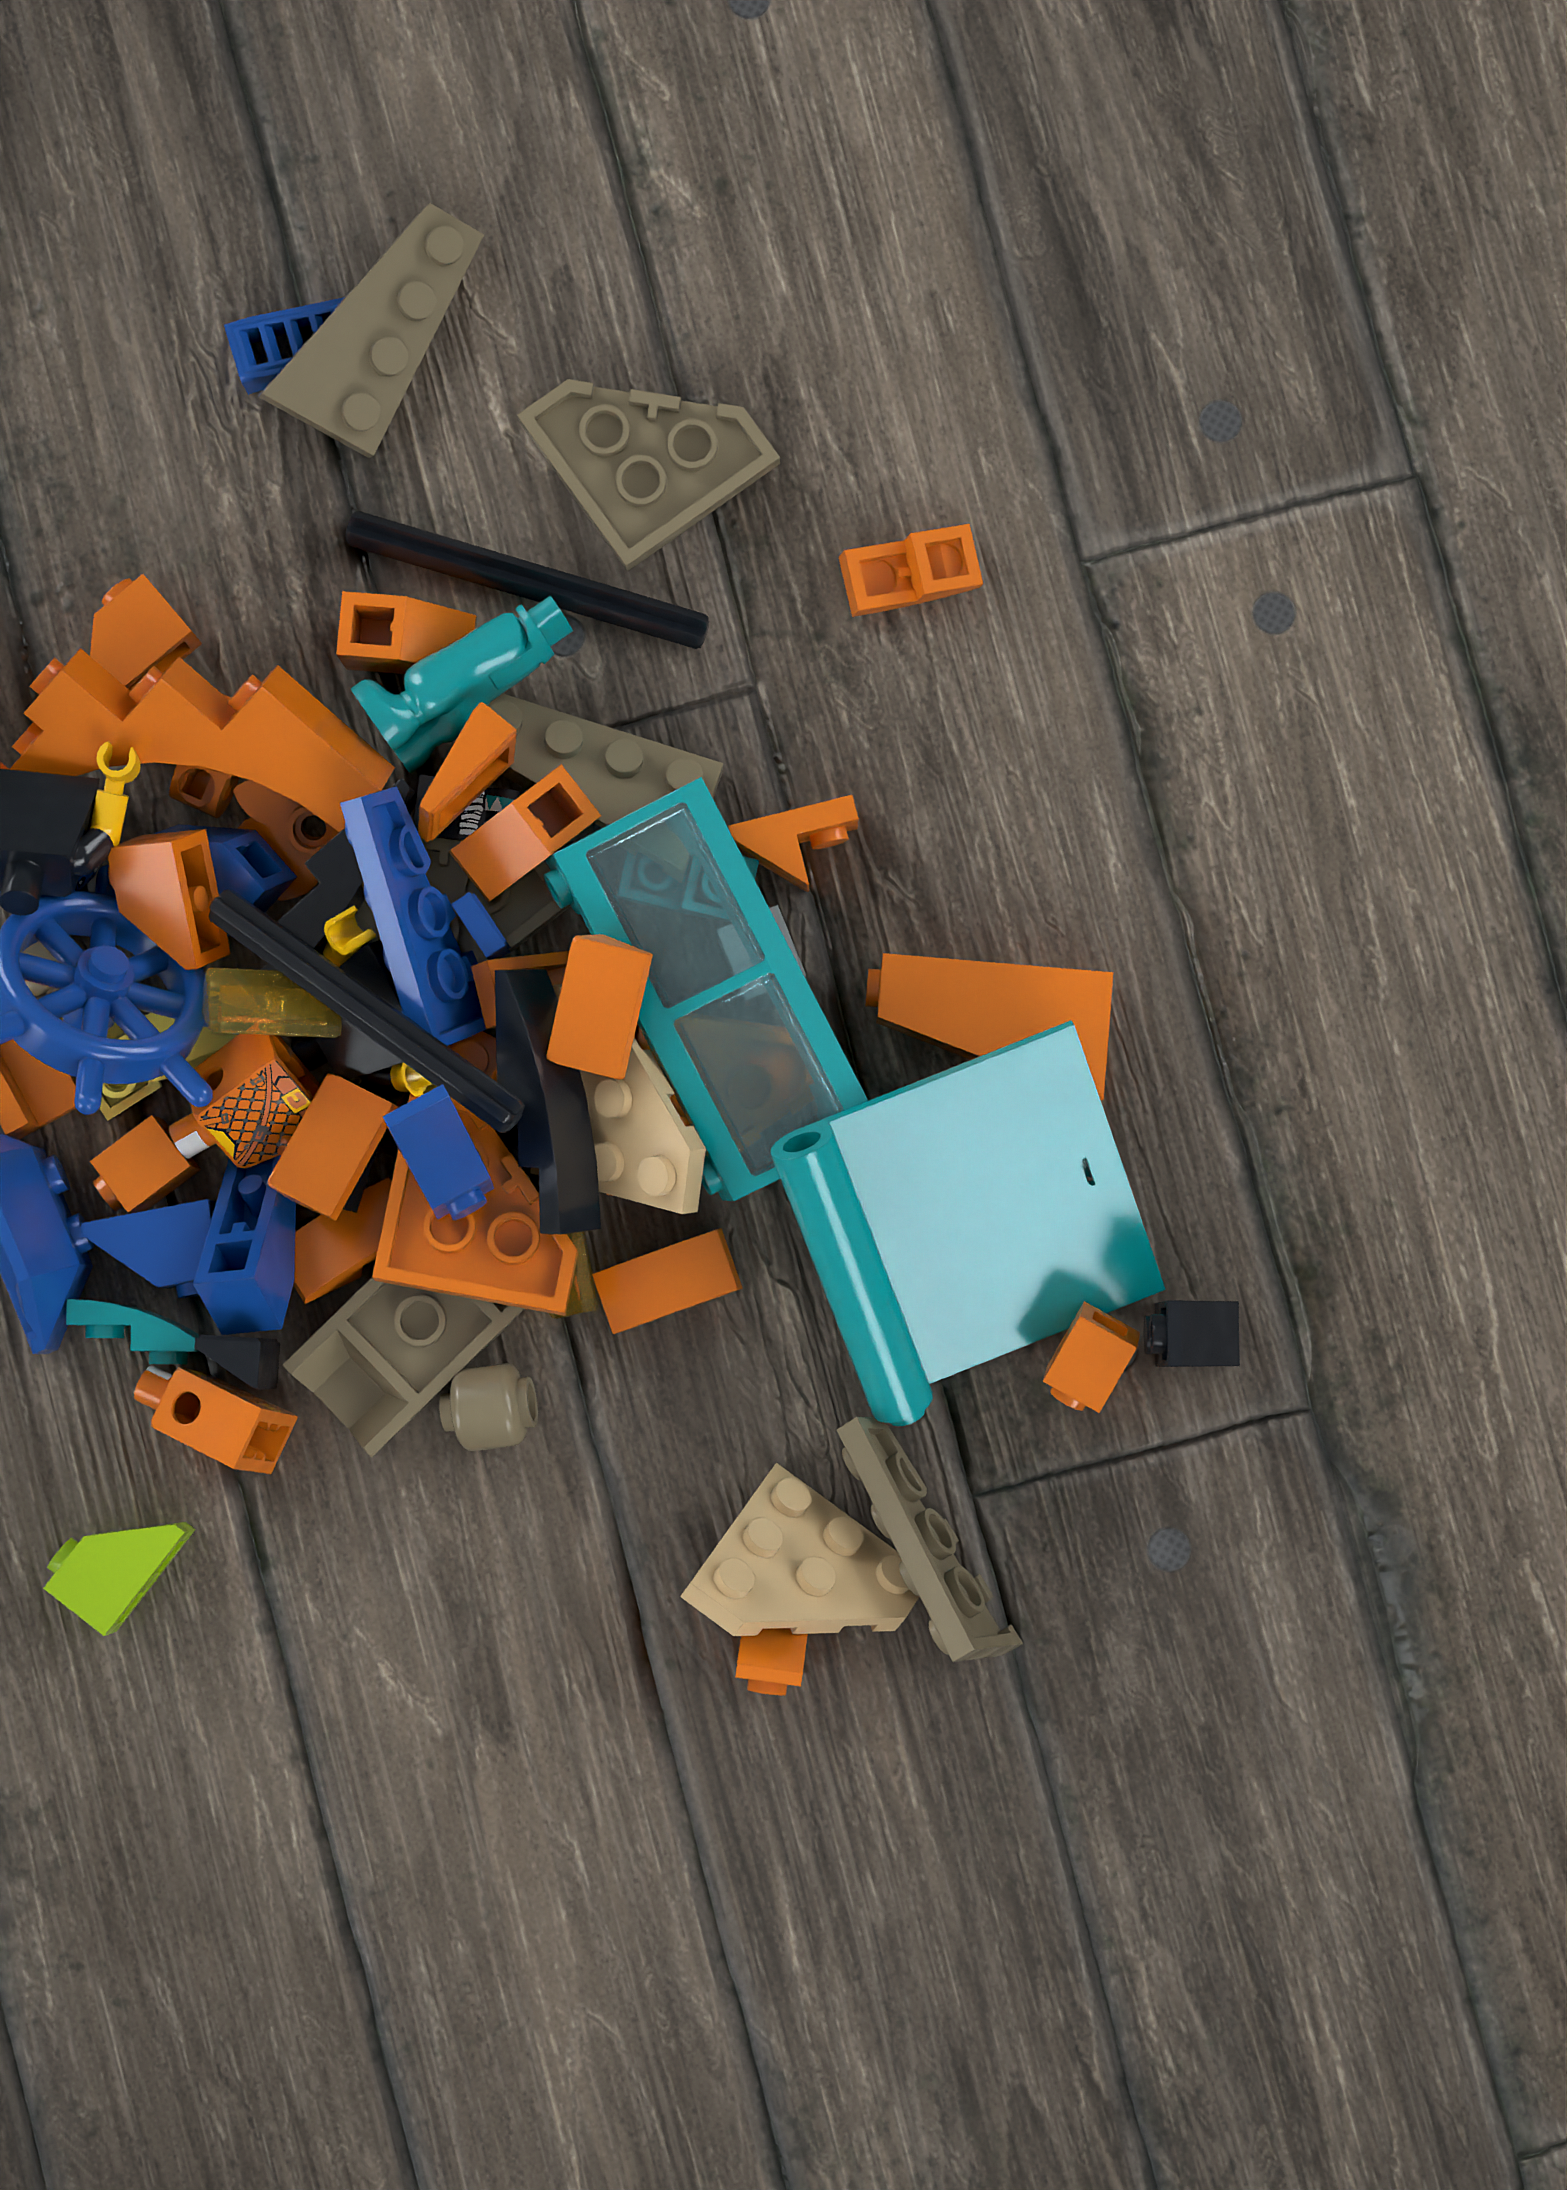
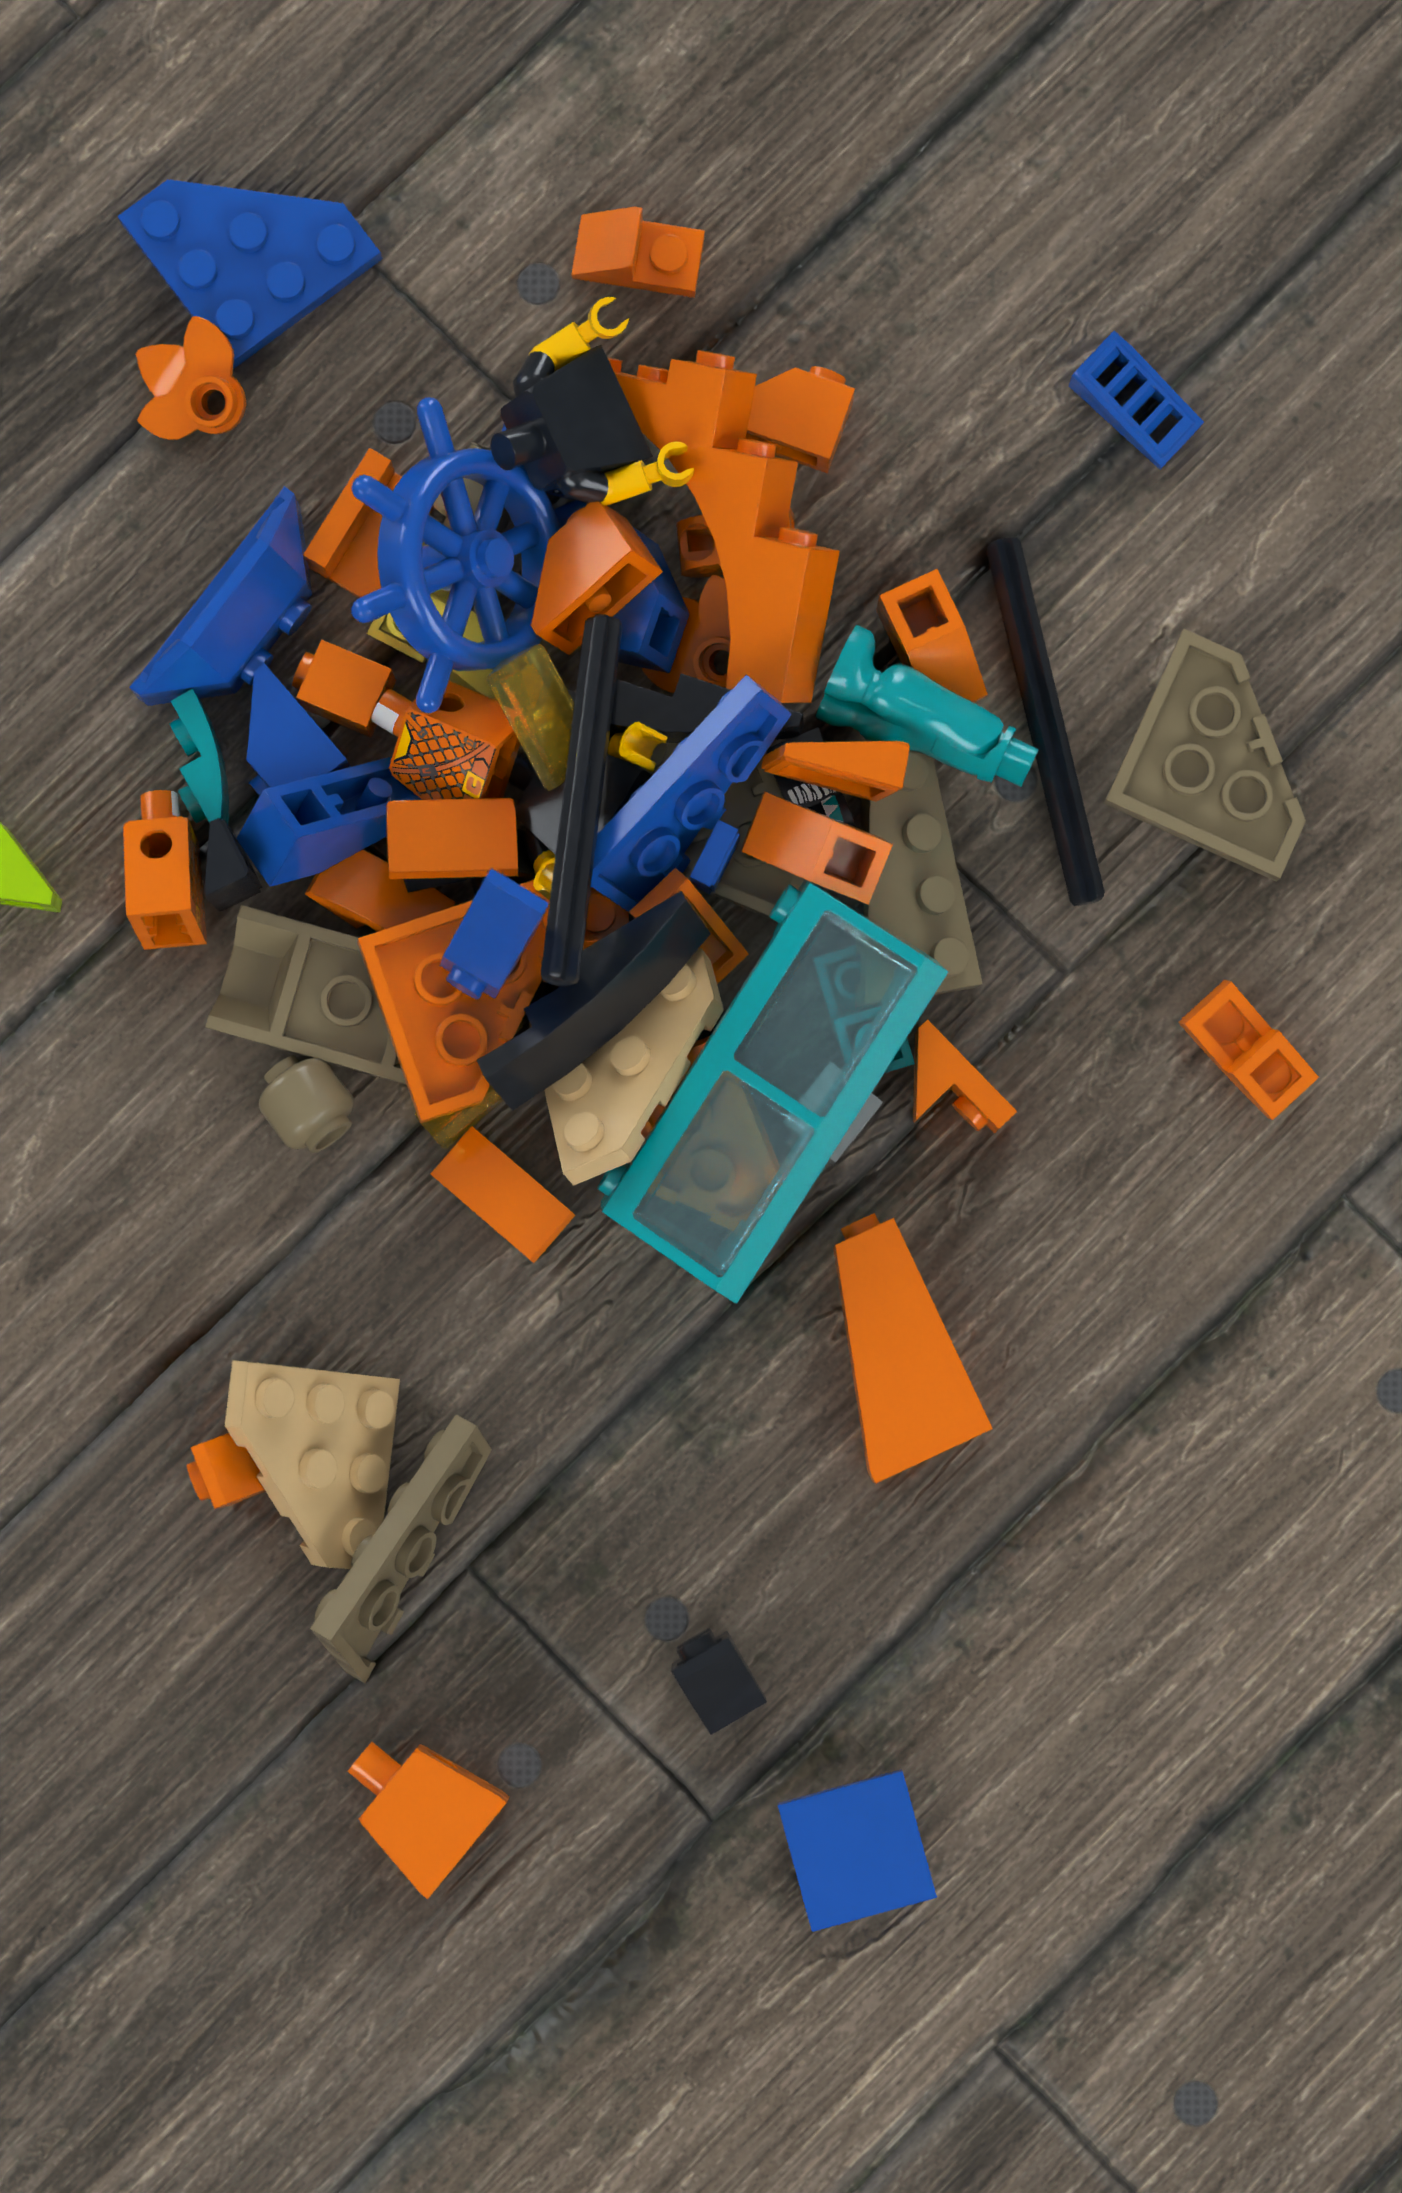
camera: 55 degrees right, 0 degrees up
(372, 343) = (1173, 467): dark tan wing -> none
(599, 1005) = (701, 997): orange slope -> none
(966, 1216) = (702, 1421): door -> none
(1090, 1359) = (644, 1601): orange brick -> none
(1164, 1653) = (424, 1811): none -> orange torso
(1407, 1298) = (857, 1850): none -> blue tile

